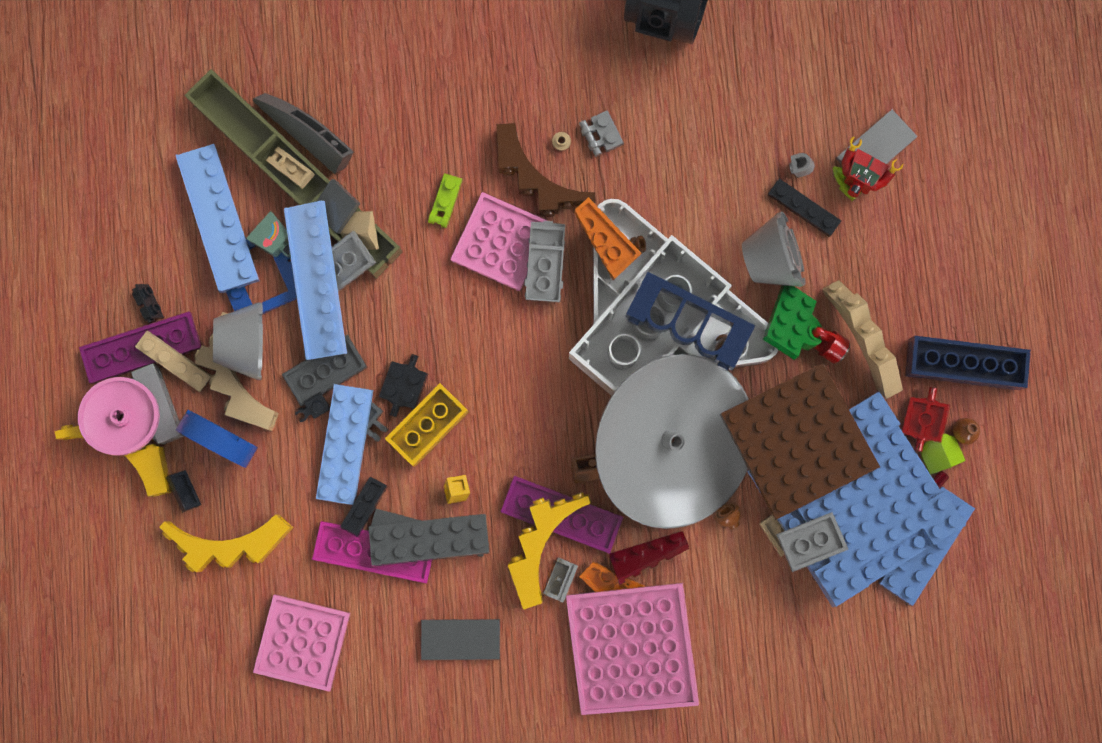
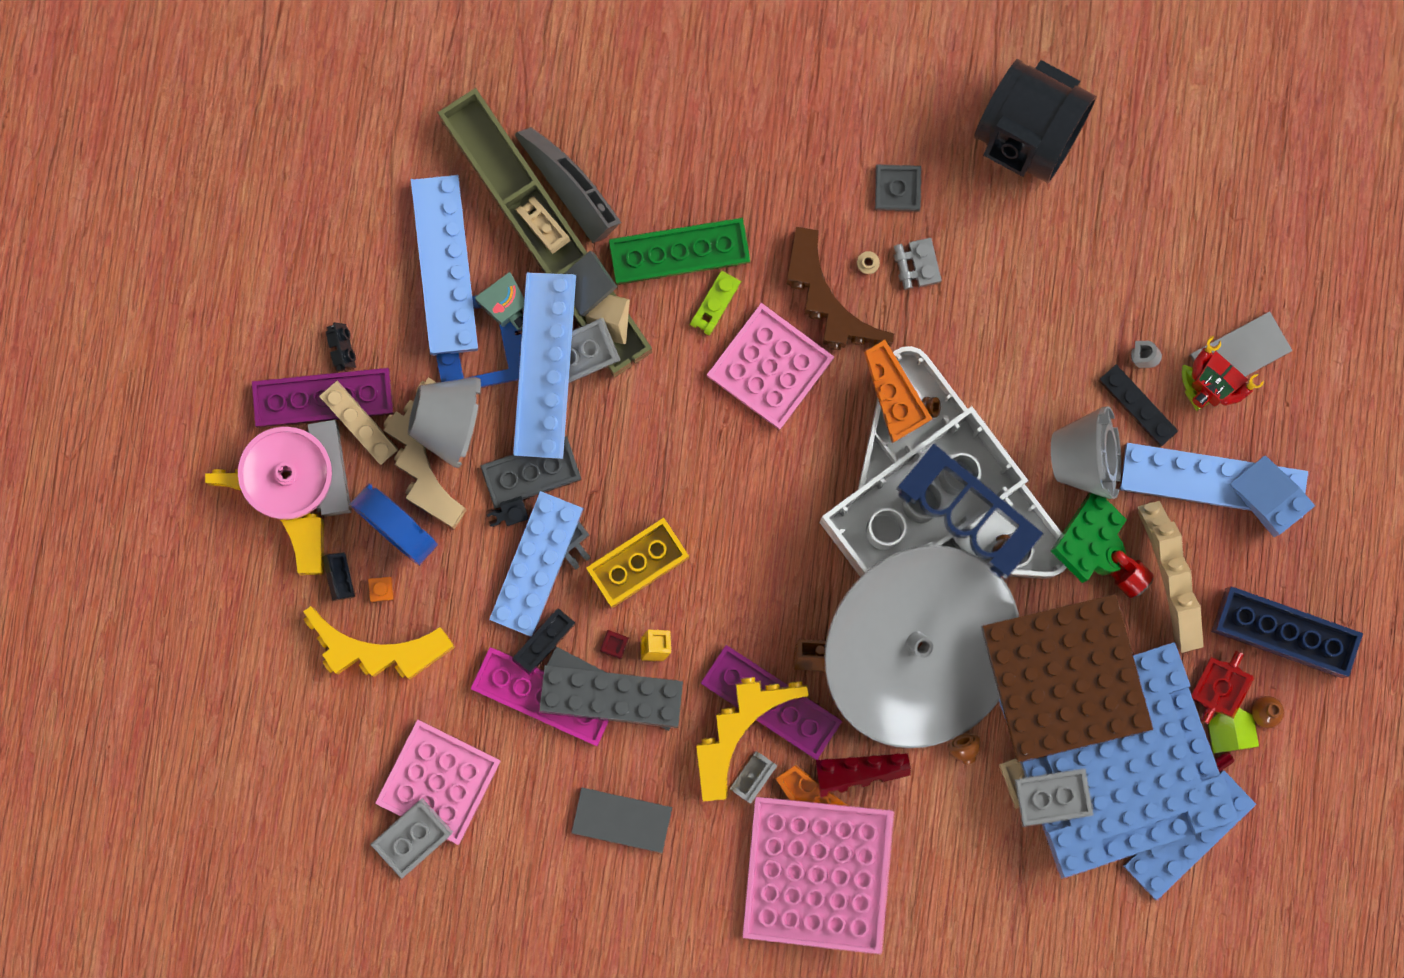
camera: 10 degrees right, 0 degrees up
(221, 493) = (381, 589): none -> orange plate
(289, 694) = (411, 838): none -> light grey tile
(403, 385) = (619, 510): black plate -> none
(406, 165) = (679, 251): none -> green plate
(423, 496) = (614, 644): none -> dark red tile
(545, 261) = (817, 402): light grey piece -> none
(572, 76) = (898, 188): none -> dark grey tile
(879, 254) = (1188, 475): none -> light blue plate
(930, 255) = (1272, 496): none -> medium blue slope

